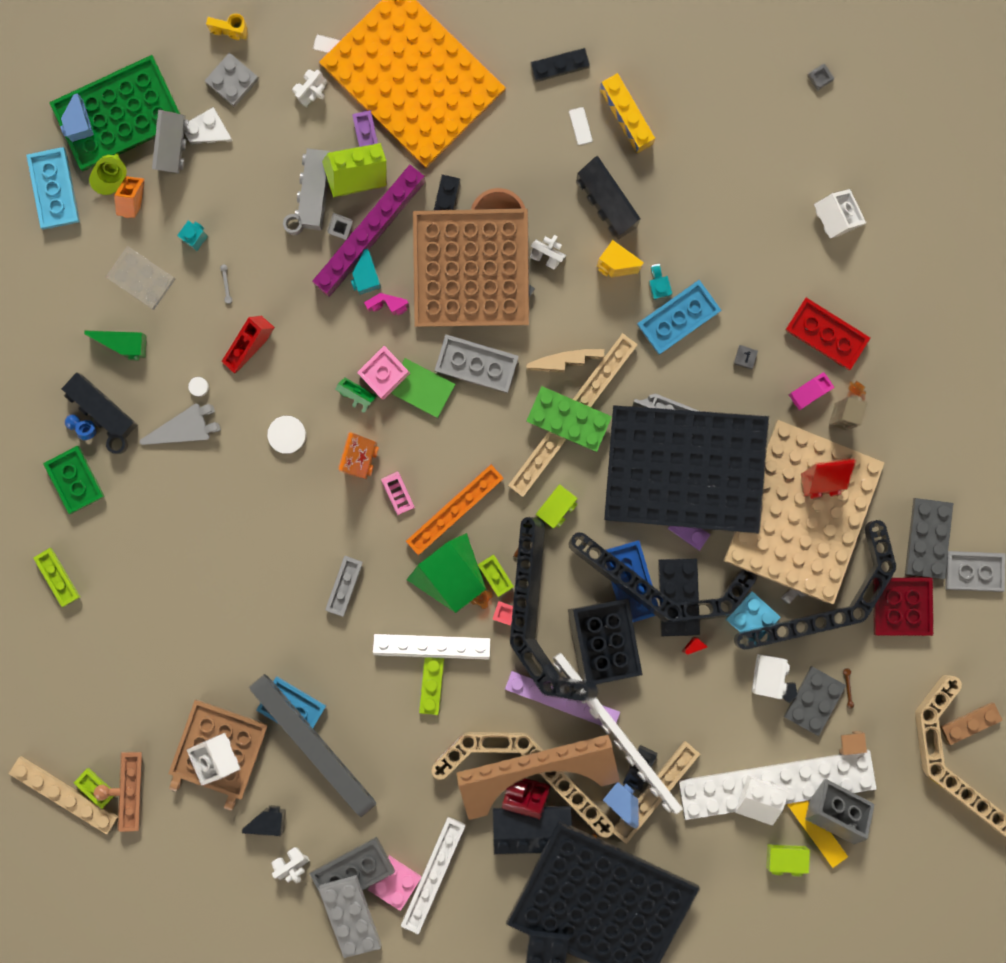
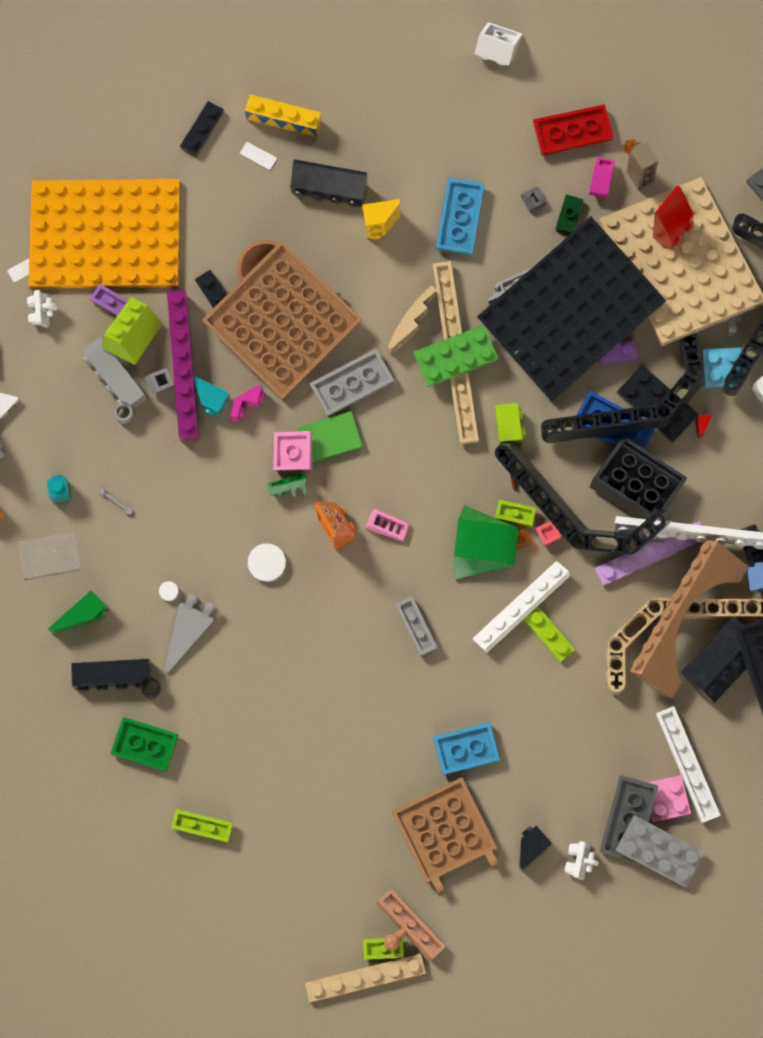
camera: 40 degrees left, 10 degrees down
(84, 429) = (117, 701): blue plate -> none
(213, 759) = (448, 836): white slope -> none
(248, 342) = (174, 525): red slope -> none
(312, 745) = (509, 757): dark grey beam -> none
(454, 509) = (439, 497): orange plate -> none
(526, 797) = (695, 640): dark red plate -> none
(540, 248) = (315, 263): white hips -> none
(660, 285) = (424, 209): teal plate -> none
(759, 394) = (569, 214): none -> dark green plate

